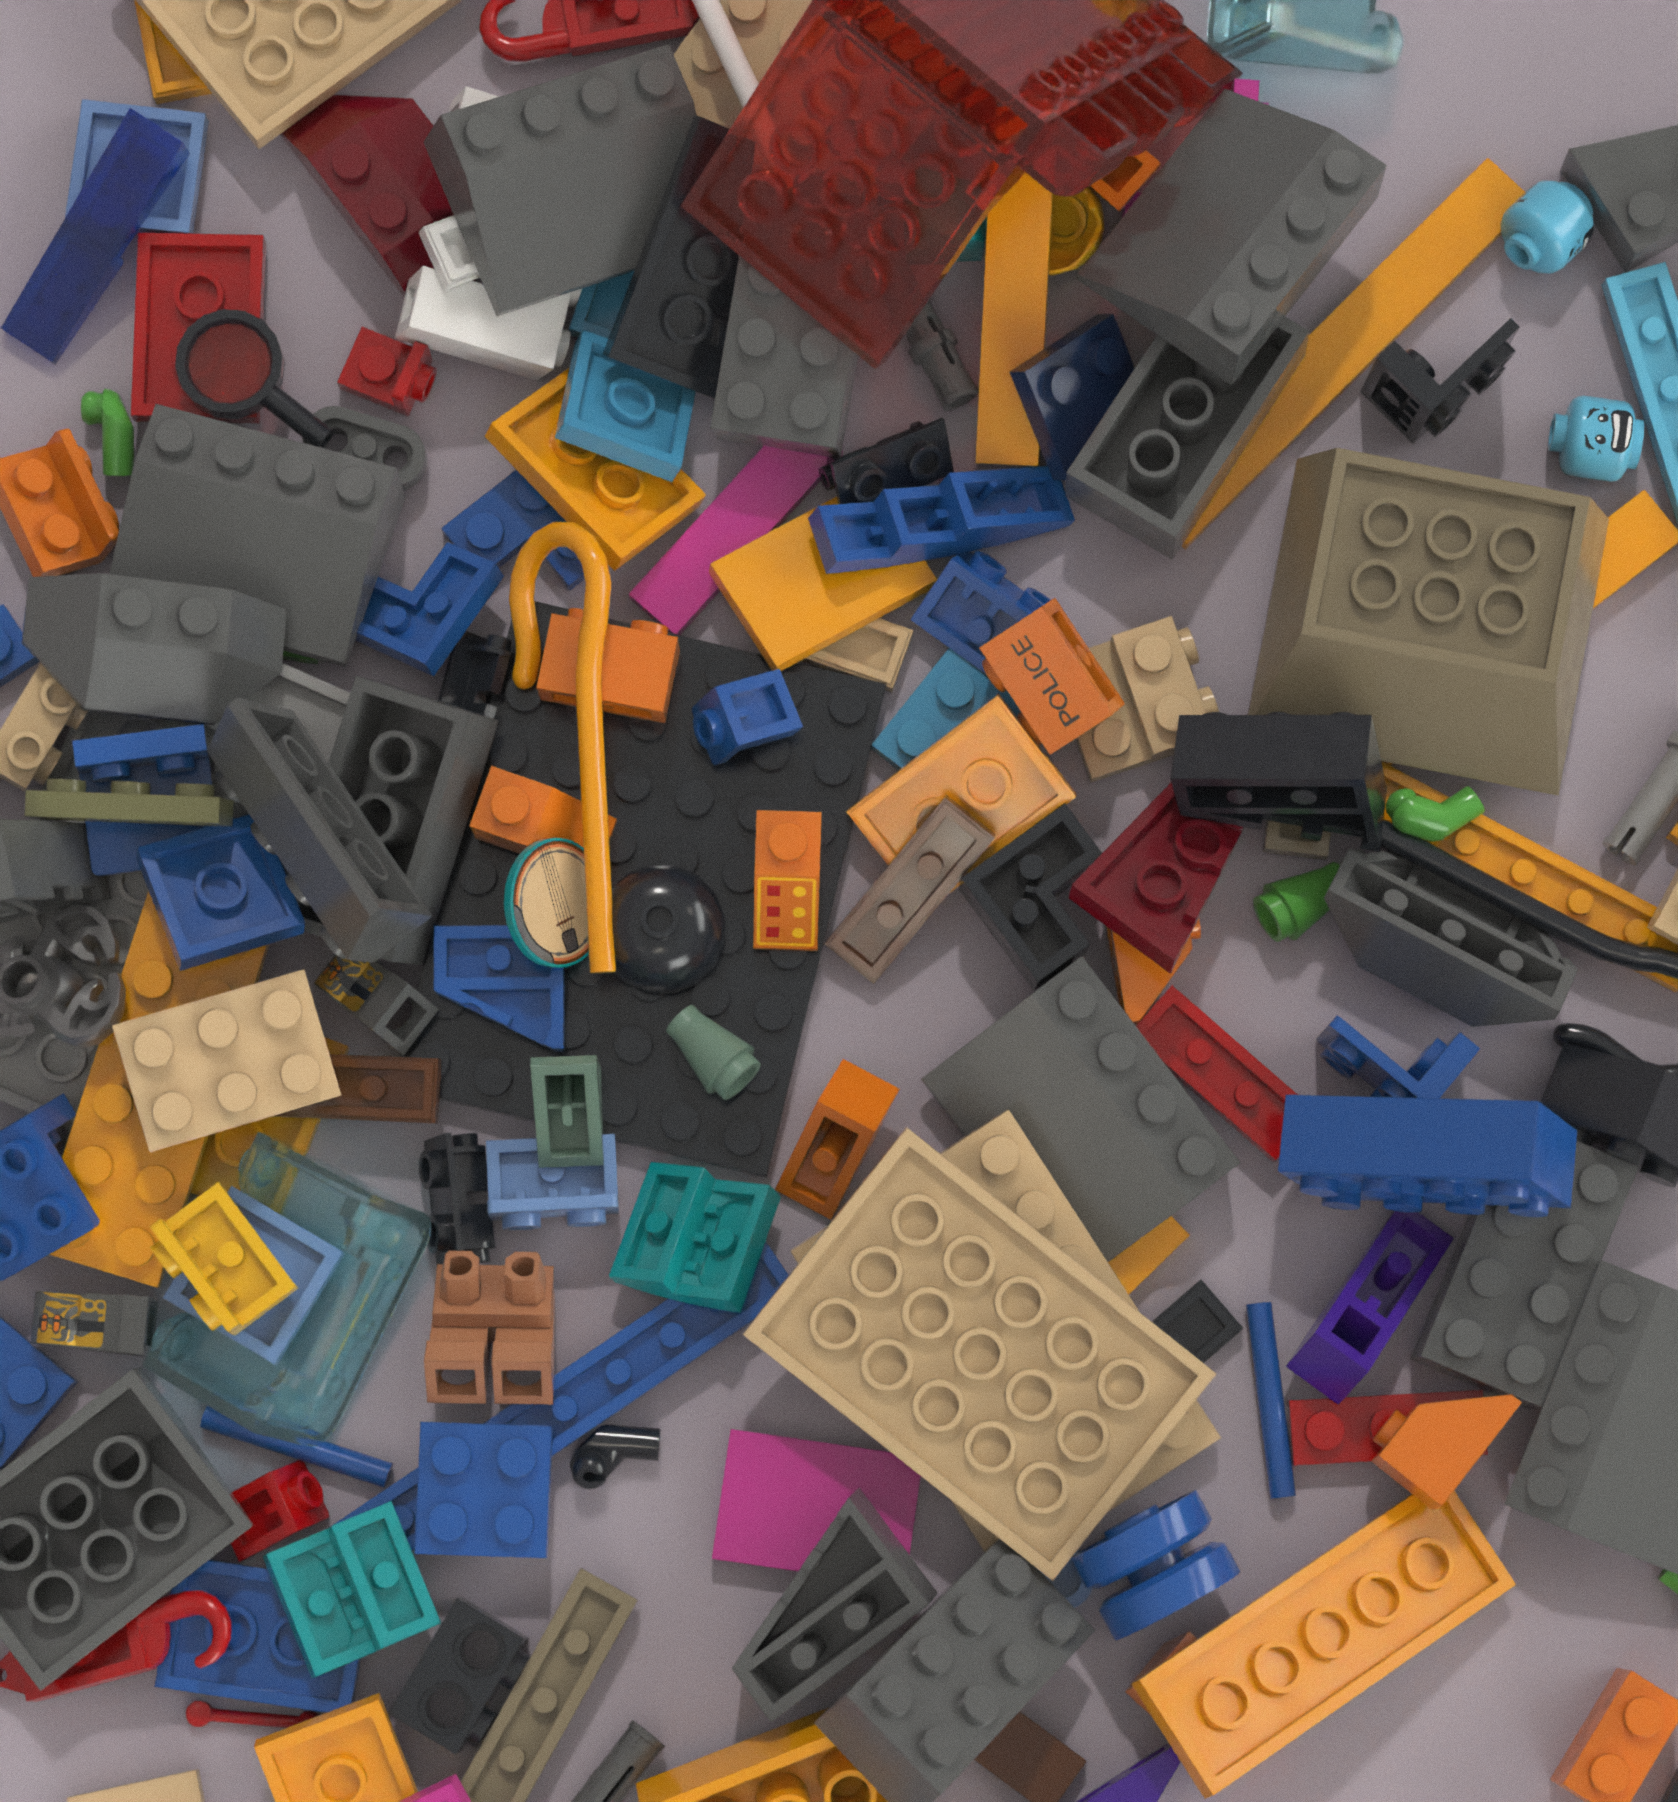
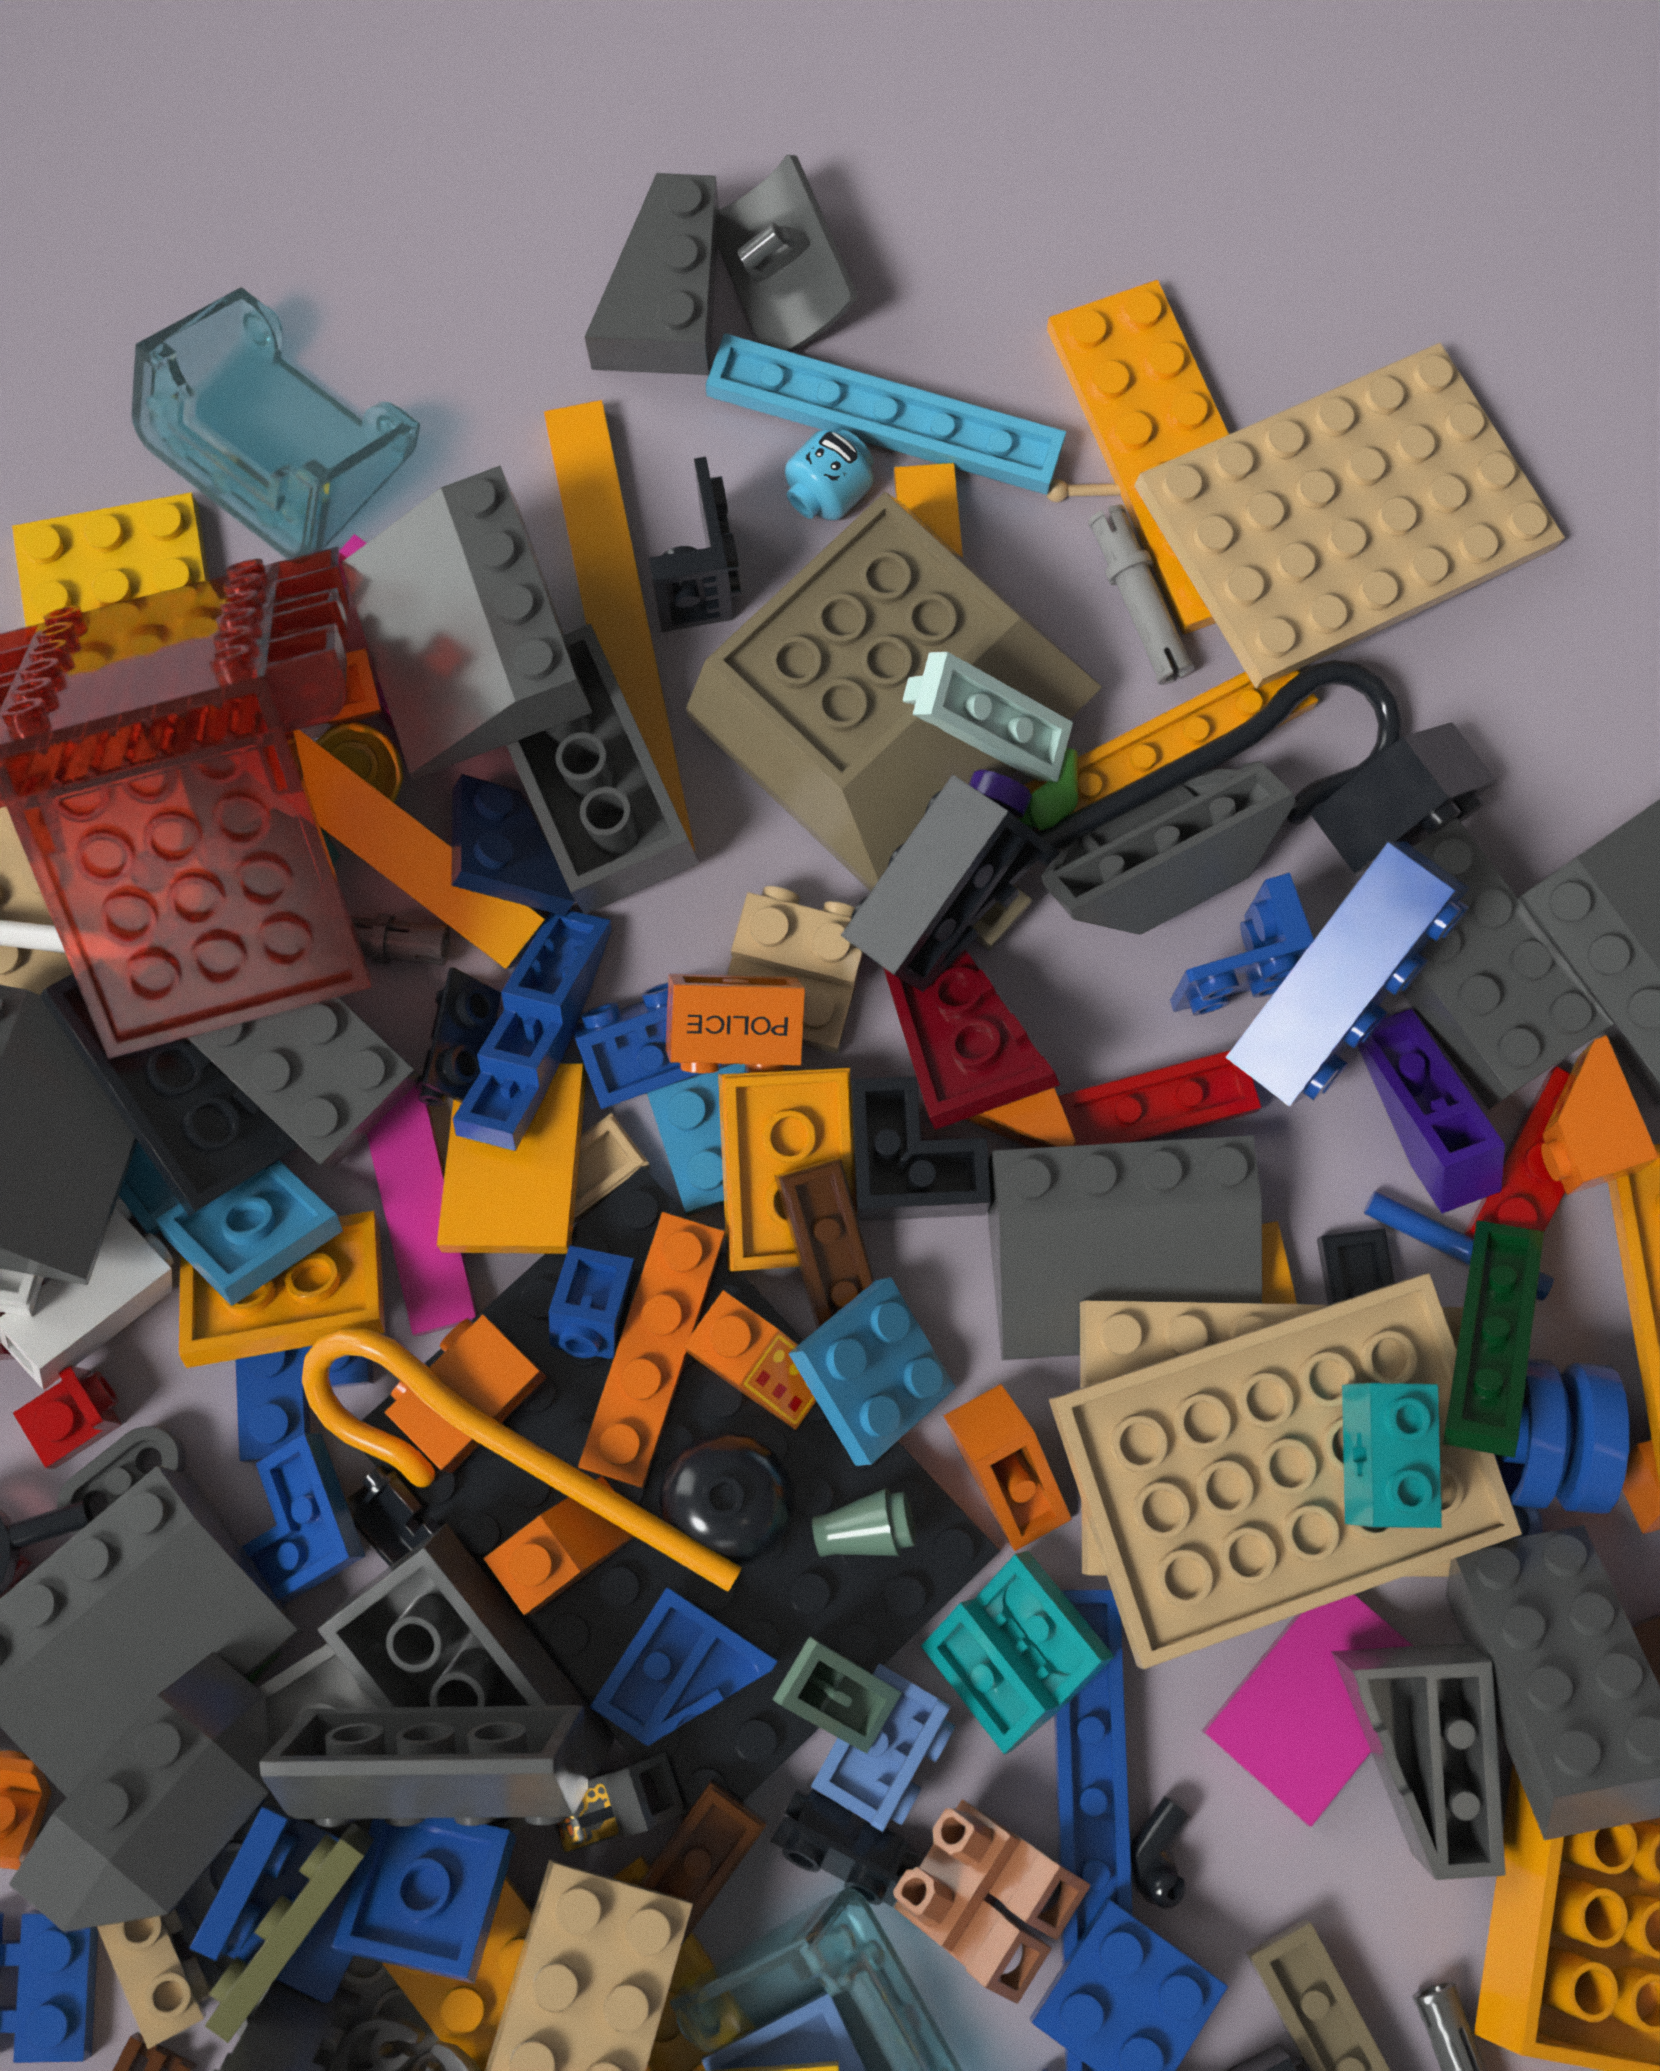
camera: 55 degrees left, 5 degrees down
(548, 903) = (640, 1588): piece -> none
(733, 791) = (652, 1350): none -> orange plate
(840, 977) = (872, 1371): none -> dark azure plate
(1039, 1424) = (1391, 1455): none -> teal brick
(1198, 1457) = (1494, 1340): none -> dark green plate
(1294, 903) = (1053, 949): bright green cone -> none
(1396, 767) = (1002, 790): none -> dark purple tile
(1449, 715) = (989, 716): none -> light aqua hinge
(1547, 226) = (632, 398): medium azure head -> none

